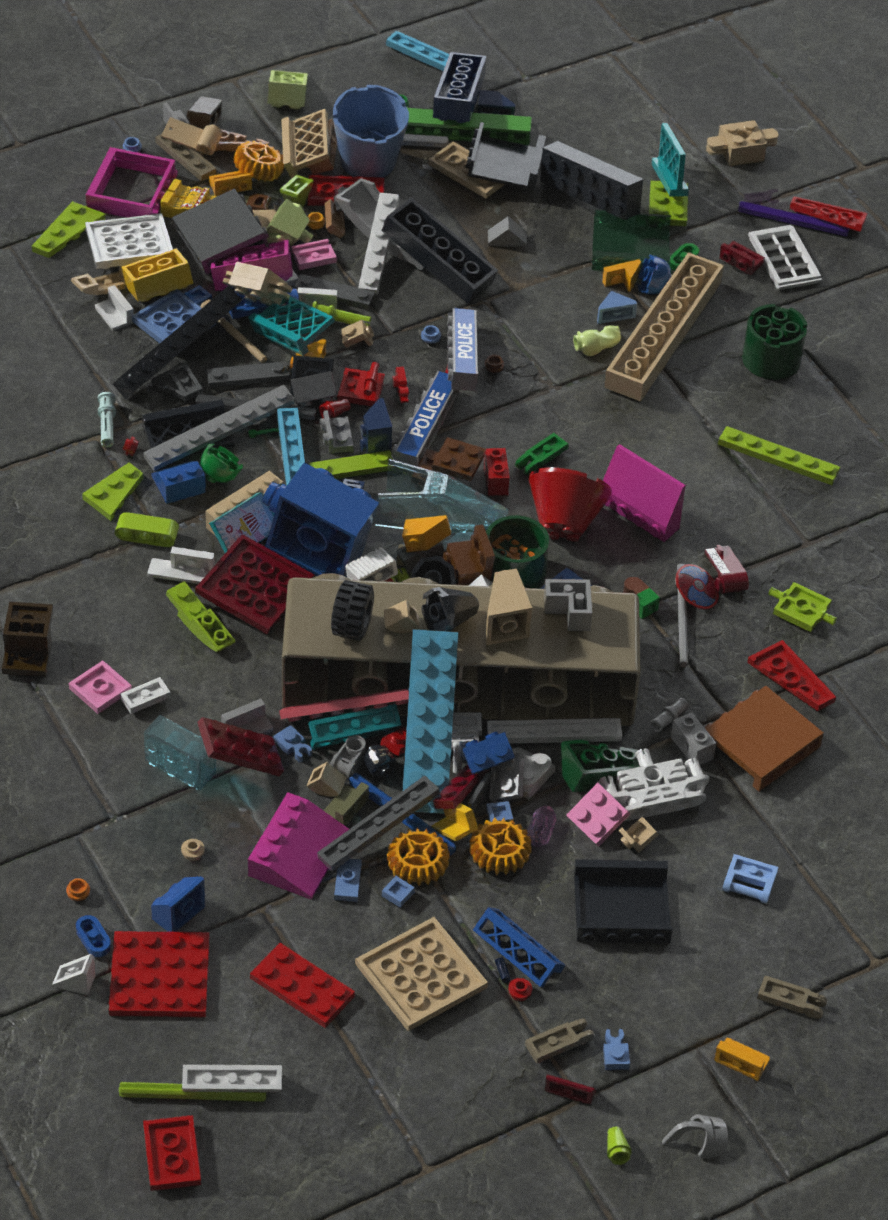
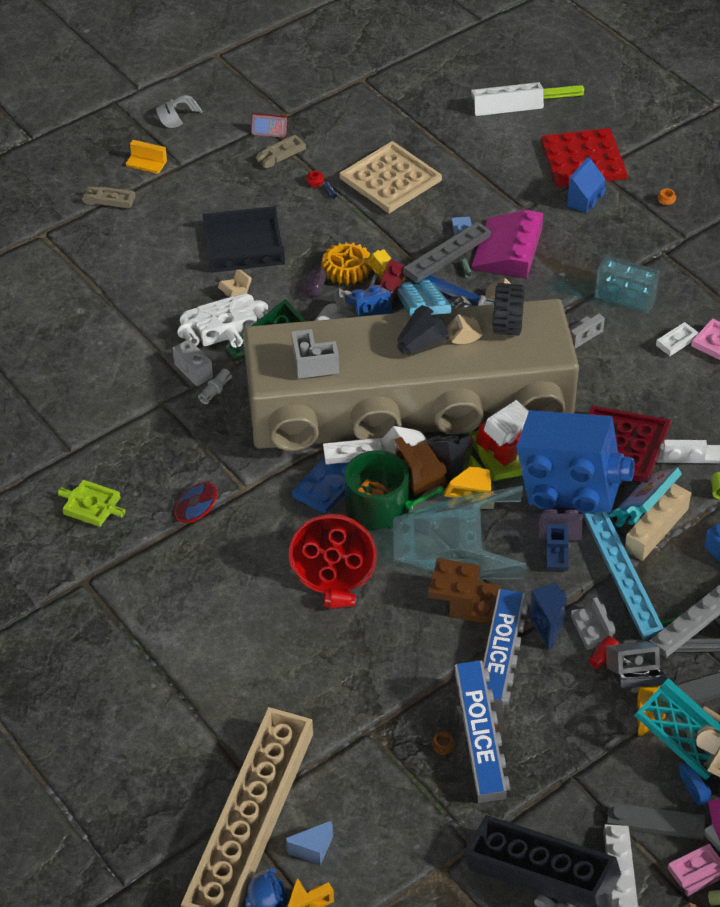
camera: 175 degrees right, 0 degrees up
(76, 975) = (641, 142): white slope -> none
(95, 937) = (641, 168): blue plate -> none
(171, 1153) = (534, 60): red plate -> none
(192, 854) = (590, 235): tan plate -> none
(198, 619) = (651, 403): lime slope -> none
(219, 464) = (696, 552): green cylinder -> none
(240, 746) = (581, 282): dark red plate -> none
(302, 985) = (477, 163): red plate -> none
(322, 296) = (671, 797): white plate -> none
(340, 315) = (648, 779): lime pin -> none
(348, 803) = (479, 278): olive panel -> none
(356, 465) = (580, 586): lime plate -> none
(357, 332) = (608, 754): tan bracket -> none
(362, 386) = (583, 683): red plate -> none
(398, 891) = (421, 225): medium blue plate -> none
(400, 382) = (542, 695): red plate -> none
(419, 849) = (409, 244): light orange gear -> none
(430, 334) = (524, 772): medium blue plate -> none
(496, 471) = (413, 597): red brick -> none
(499, 811) = (350, 285): medium blue plate -> none
(508, 609) = (368, 335): tan slope -> none
(525, 941) = (318, 203): blue fence -> none
(542, 453) = (369, 633): green hinge -> none
(593, 342) = (325, 786): yellowish green animal -> none
(598, 814) = (269, 292): bright pink plate -> none
(616, 1052) = (239, 153): medium blue plate -> none
(617, 1146) = (232, 97): lime cone -> none
(644, 494) = (256, 577): dark pink slope -> none
(647, 597) = (249, 489): green leg -> none
(682, 623) = (212, 515): light grey bar -> none
(731, 573) = (167, 532): dark red door -> none
(751, 872) = (140, 271): light blue plate -> none
(765, 736) = (132, 374): dark orange panel -> none
(774, 342) = (116, 798): dark green brick -> none
(779, 455) = (112, 676): lime plate -> none
(793, 674) = (102, 437): red wing -> none

